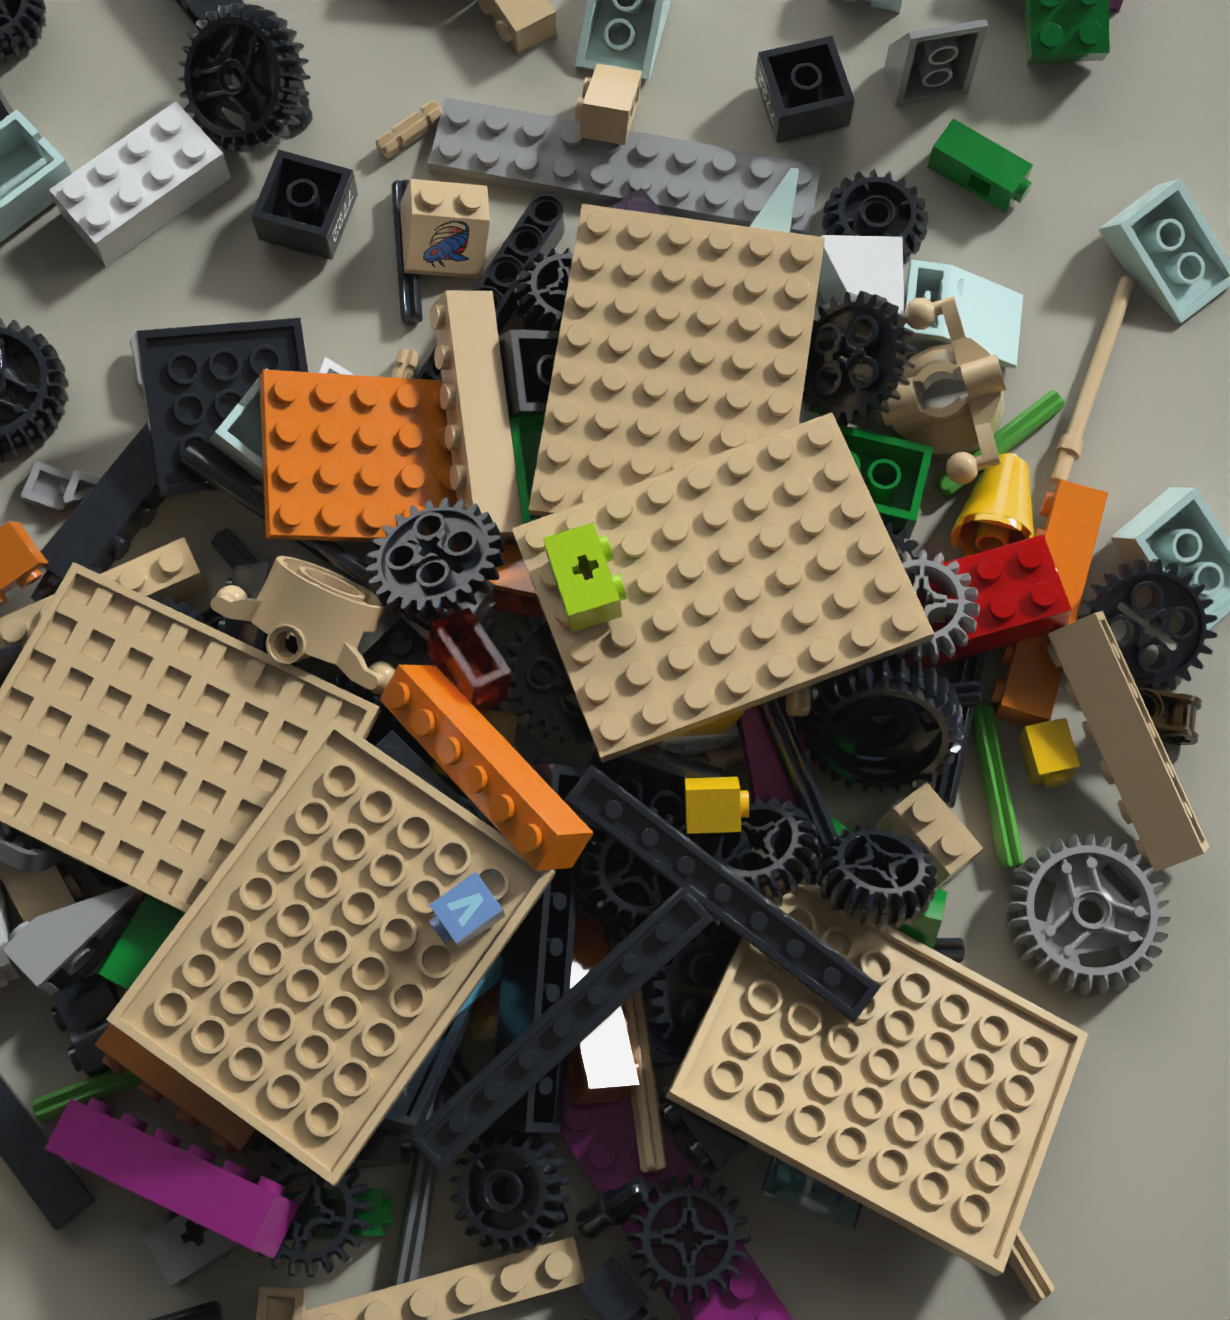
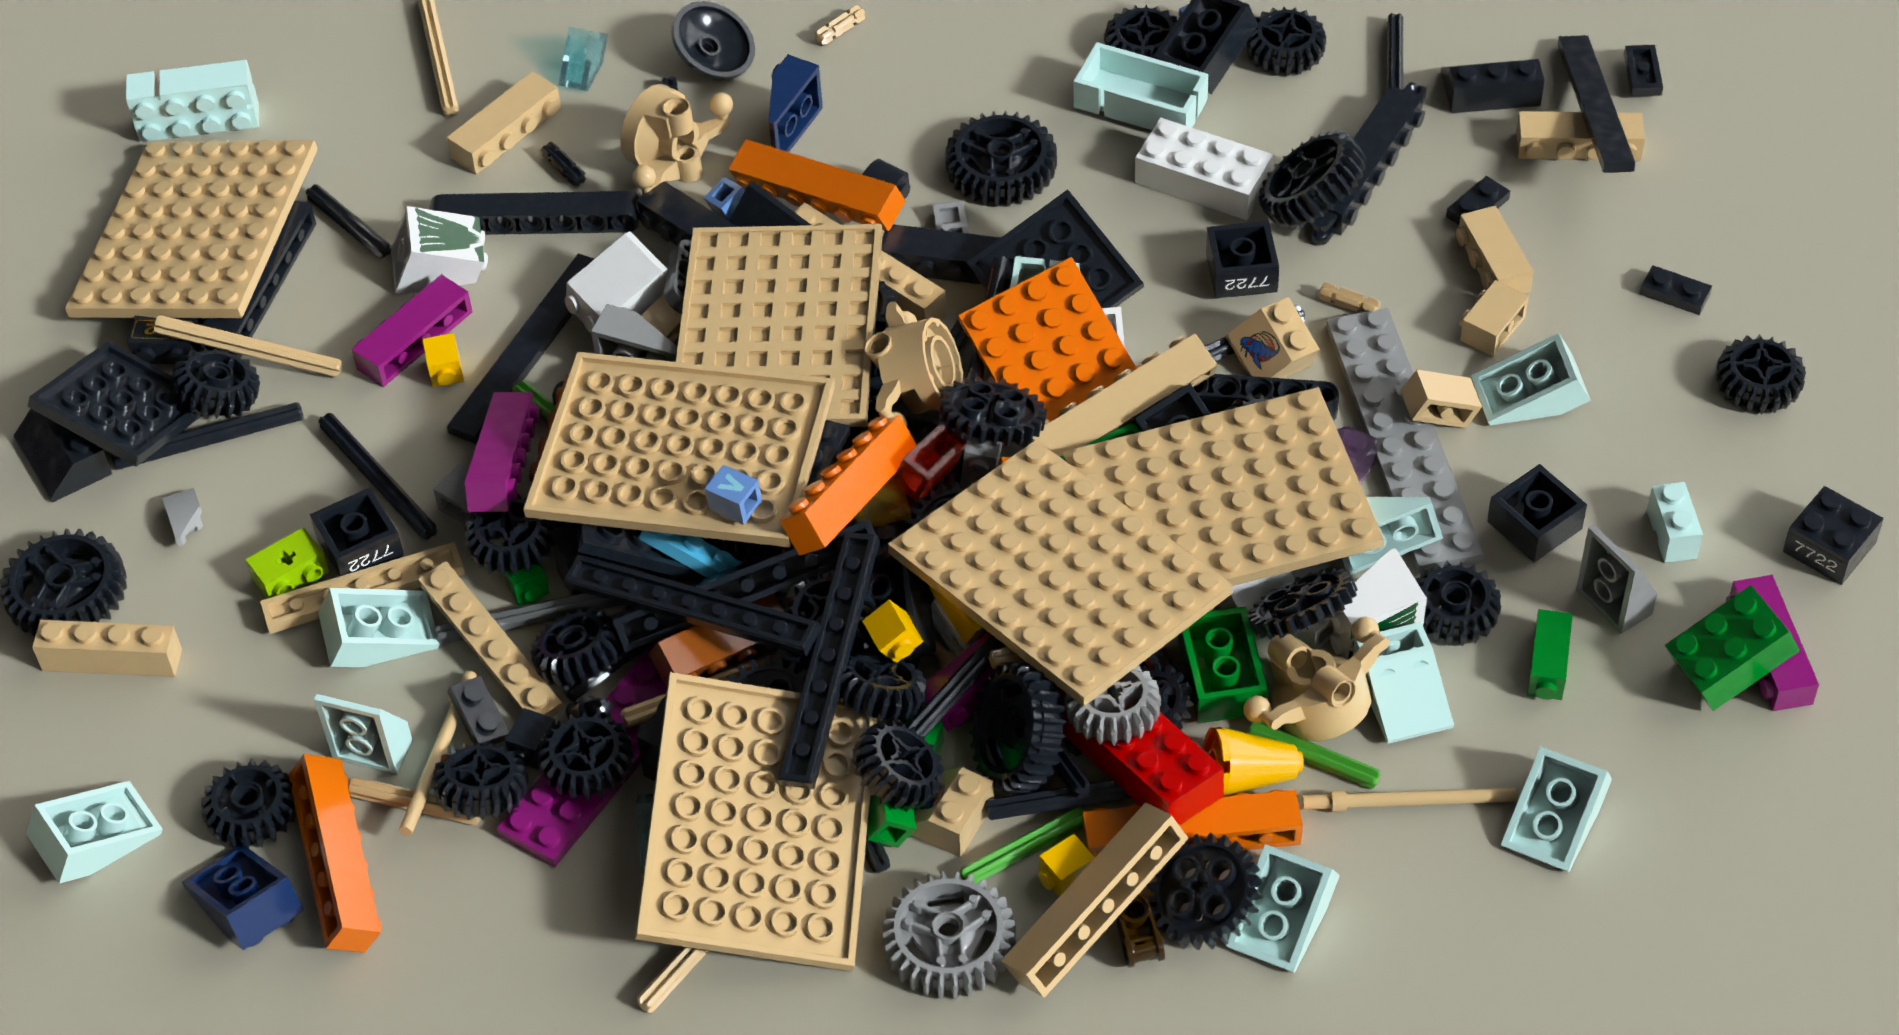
camera: 70 degrees right, 20 degrees down
(584, 600) = (1011, 477): lime brick -> none

